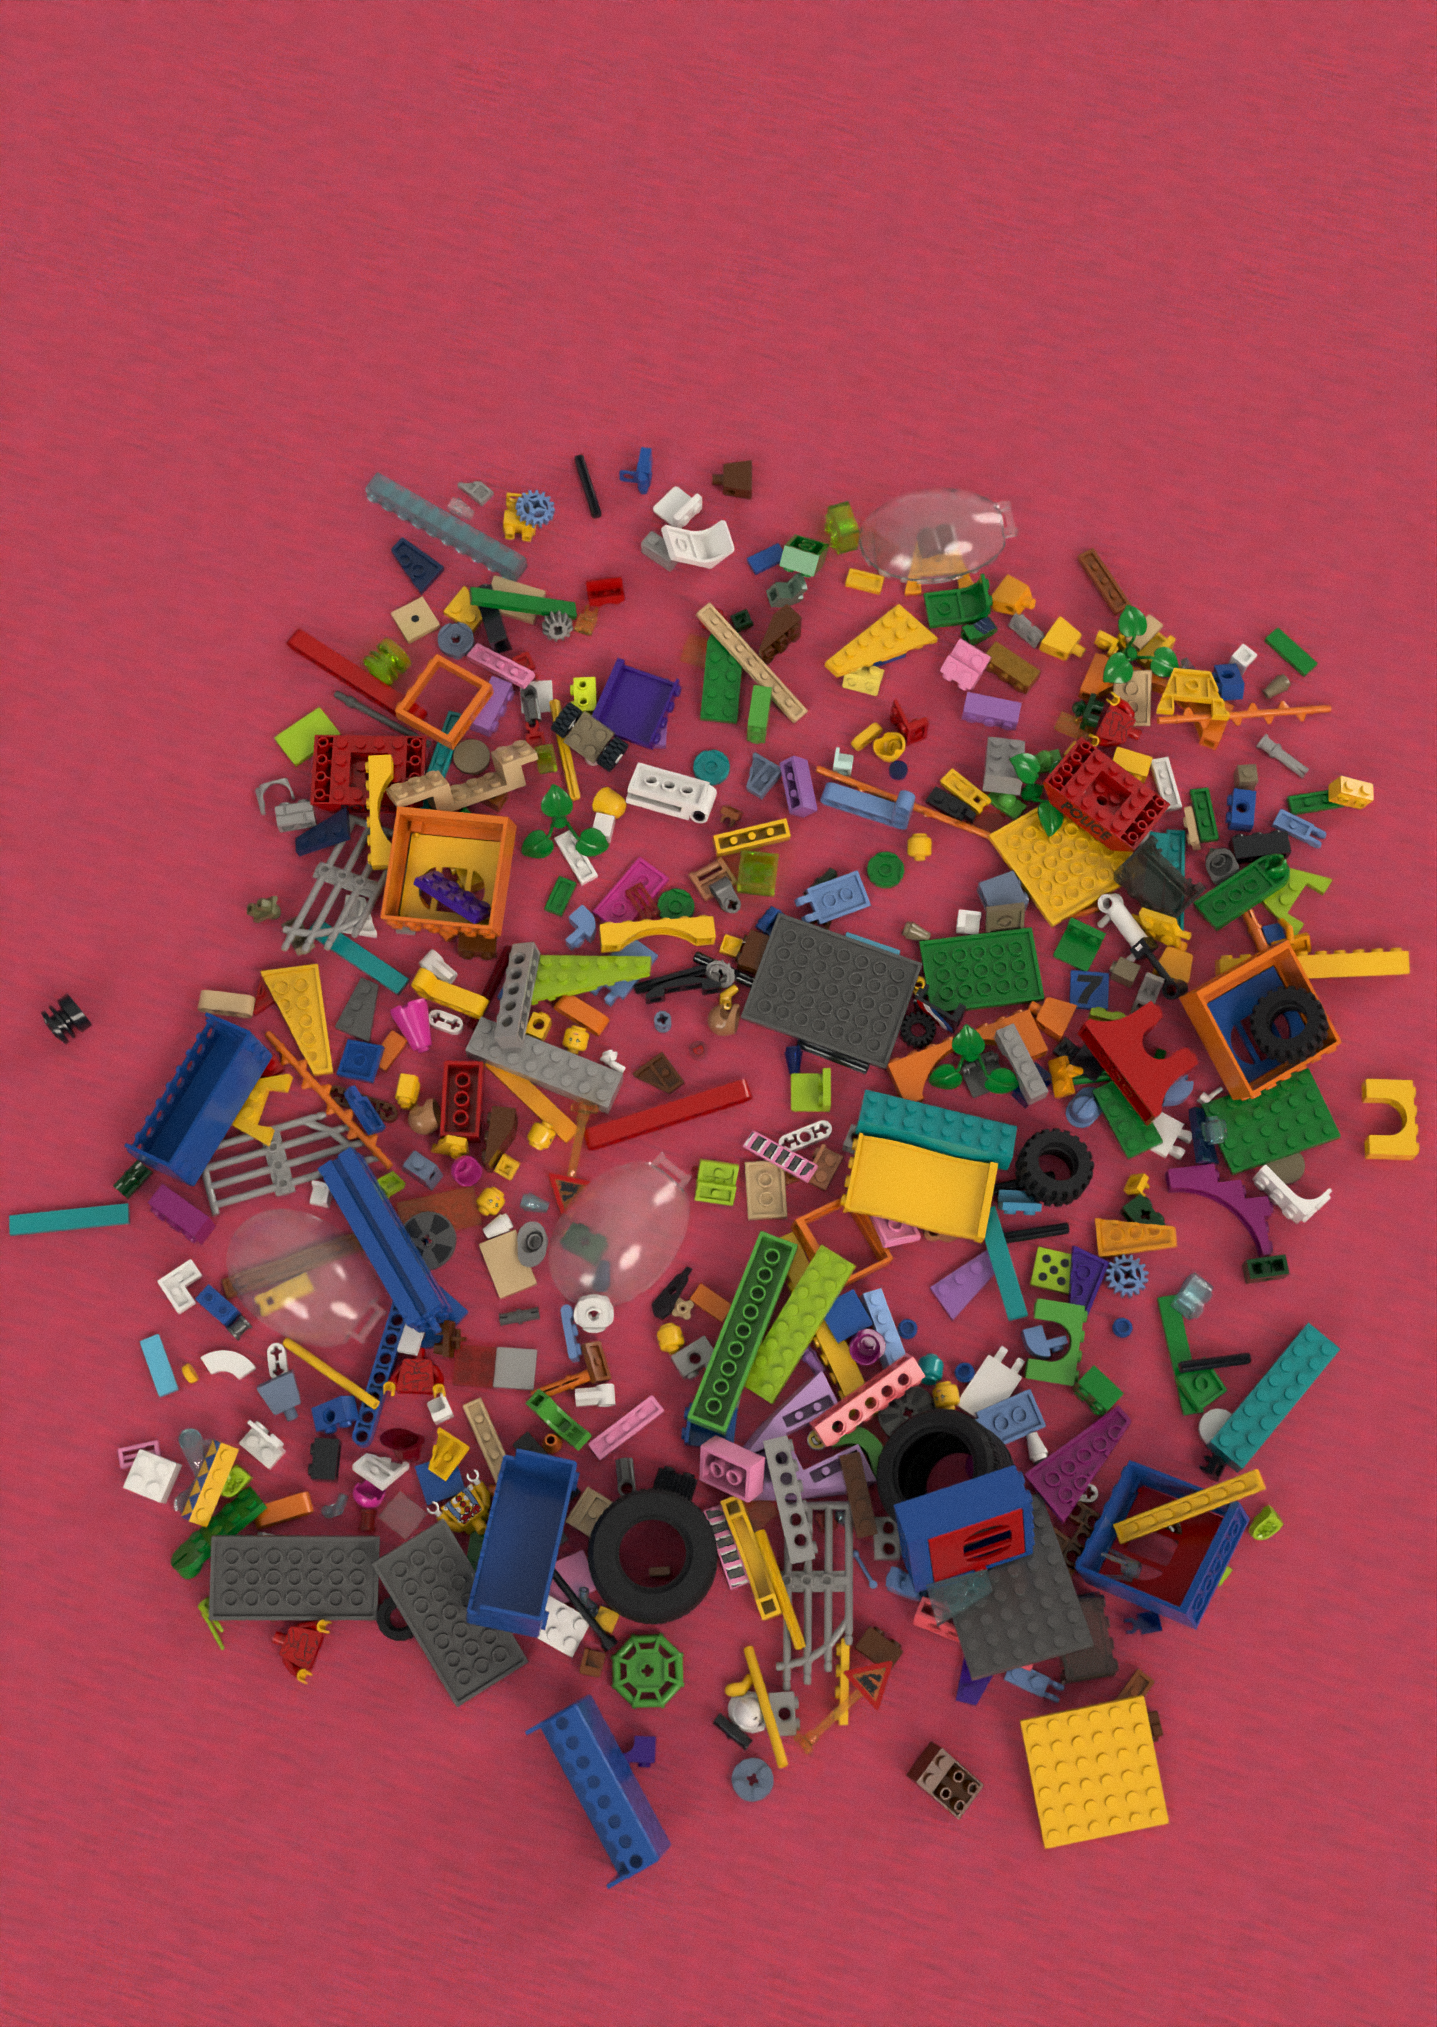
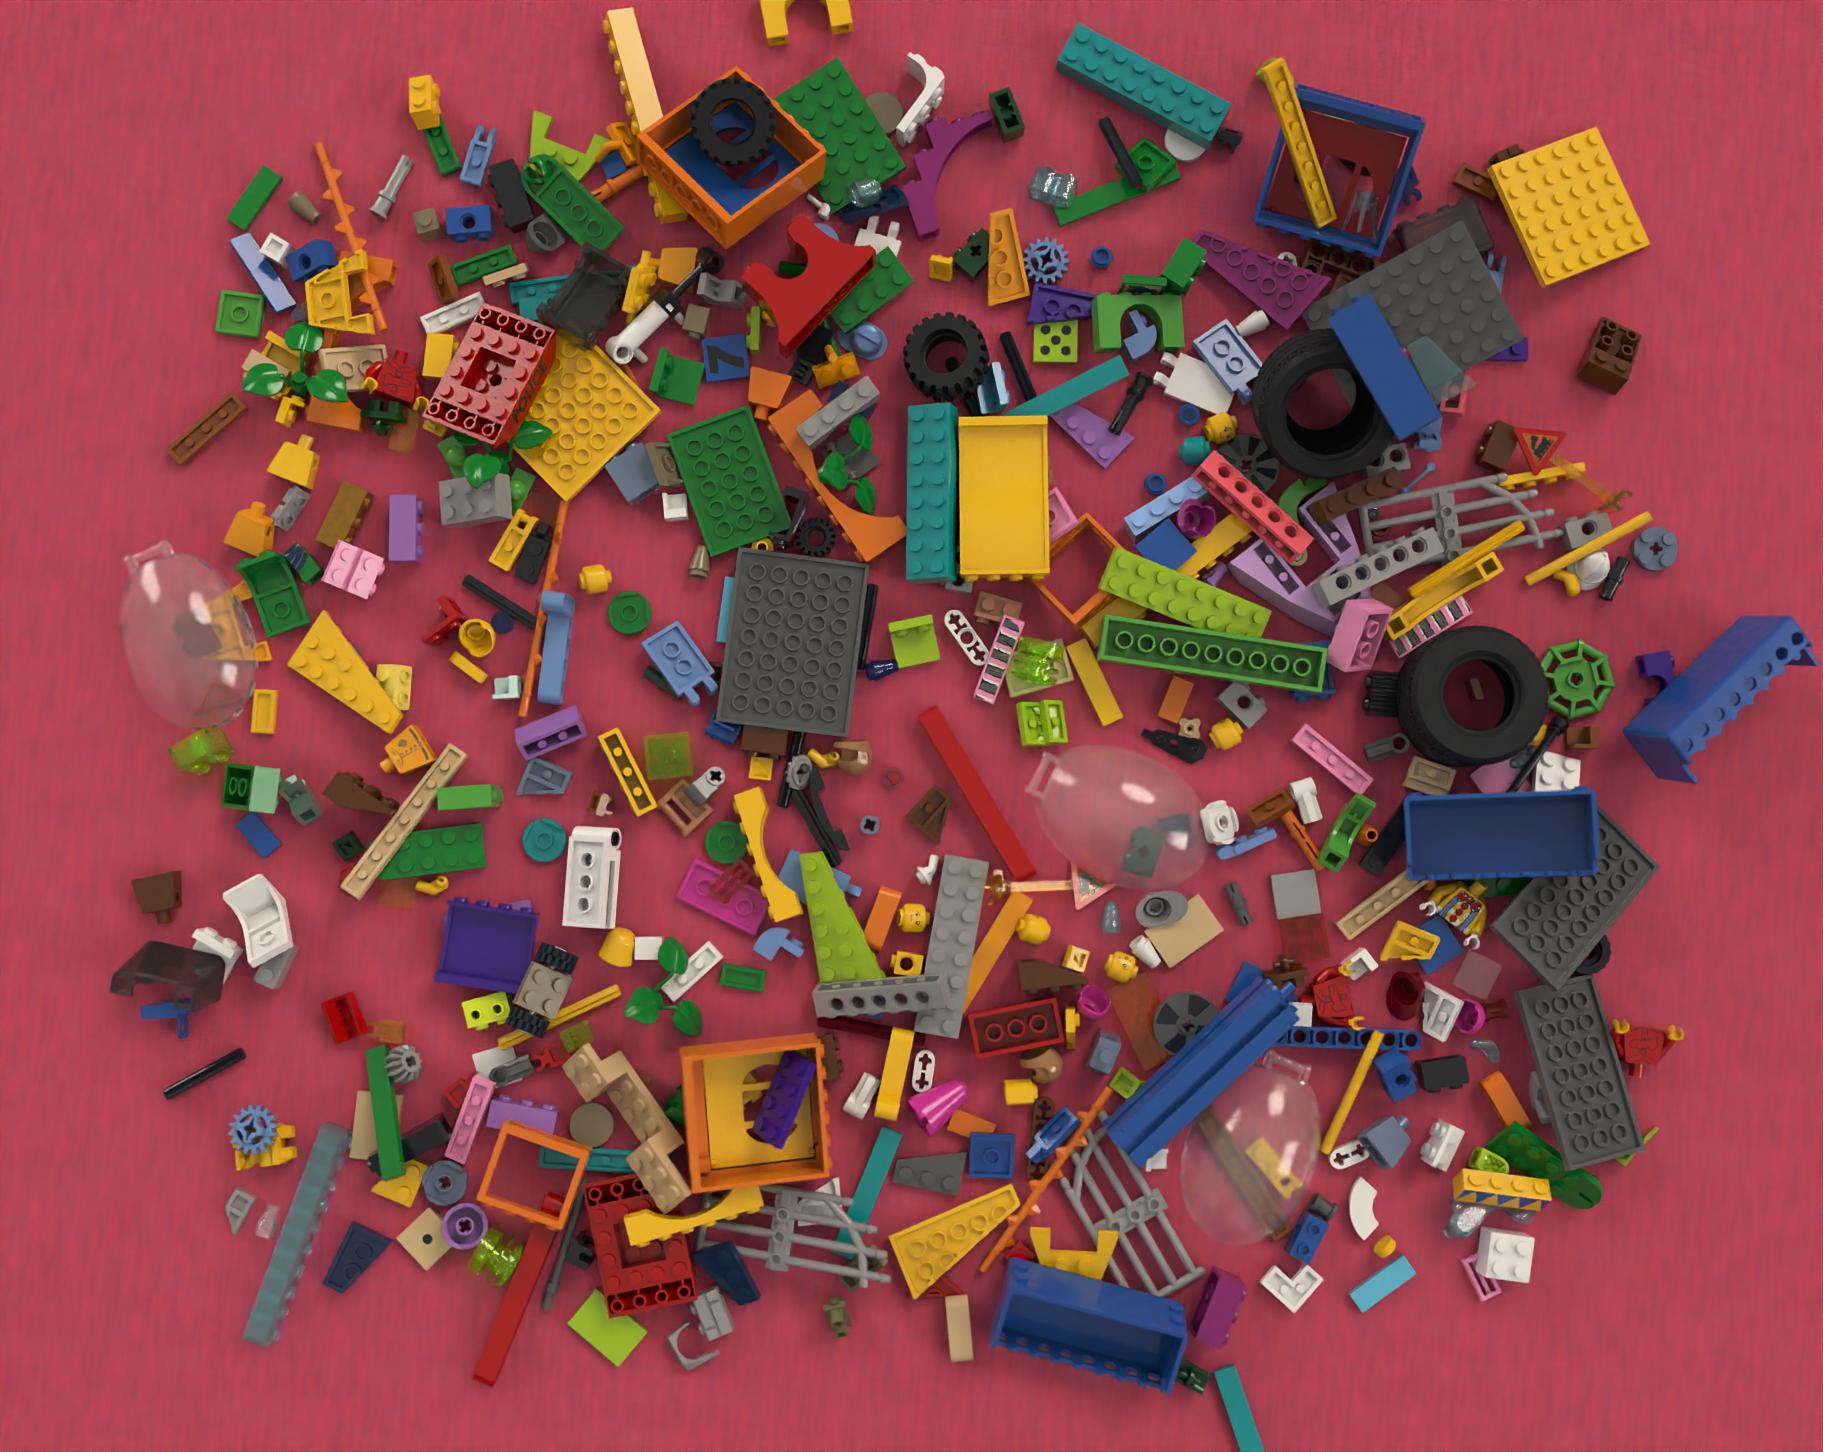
camera: 105 degrees left, 15 degrees up
(373, 723) = (580, 1254): none -> black hinge
(418, 635) = (451, 1226): none -> medium lavender brick
(671, 484) = (189, 969): none -> clear smoke windscreen
(692, 676) = (434, 887): none -> yellow arm
(739, 1236) = (1094, 682): none -> yellow tile
(770, 1184) = (1037, 661): none -> clear neon green wheel
(807, 678) = (408, 752): none -> light orange torso
(917, 770) = (500, 601): none -> black axle
(991, 1327) = (1134, 395): none -> black pin
(1088, 1352) = (1139, 284): none -> green tile
(1190, 781) = (443, 279): none -> dark orange plate
(1195, 624) = (240, 314): none -> bright green tile
(1225, 645) = (262, 273): none -> tile

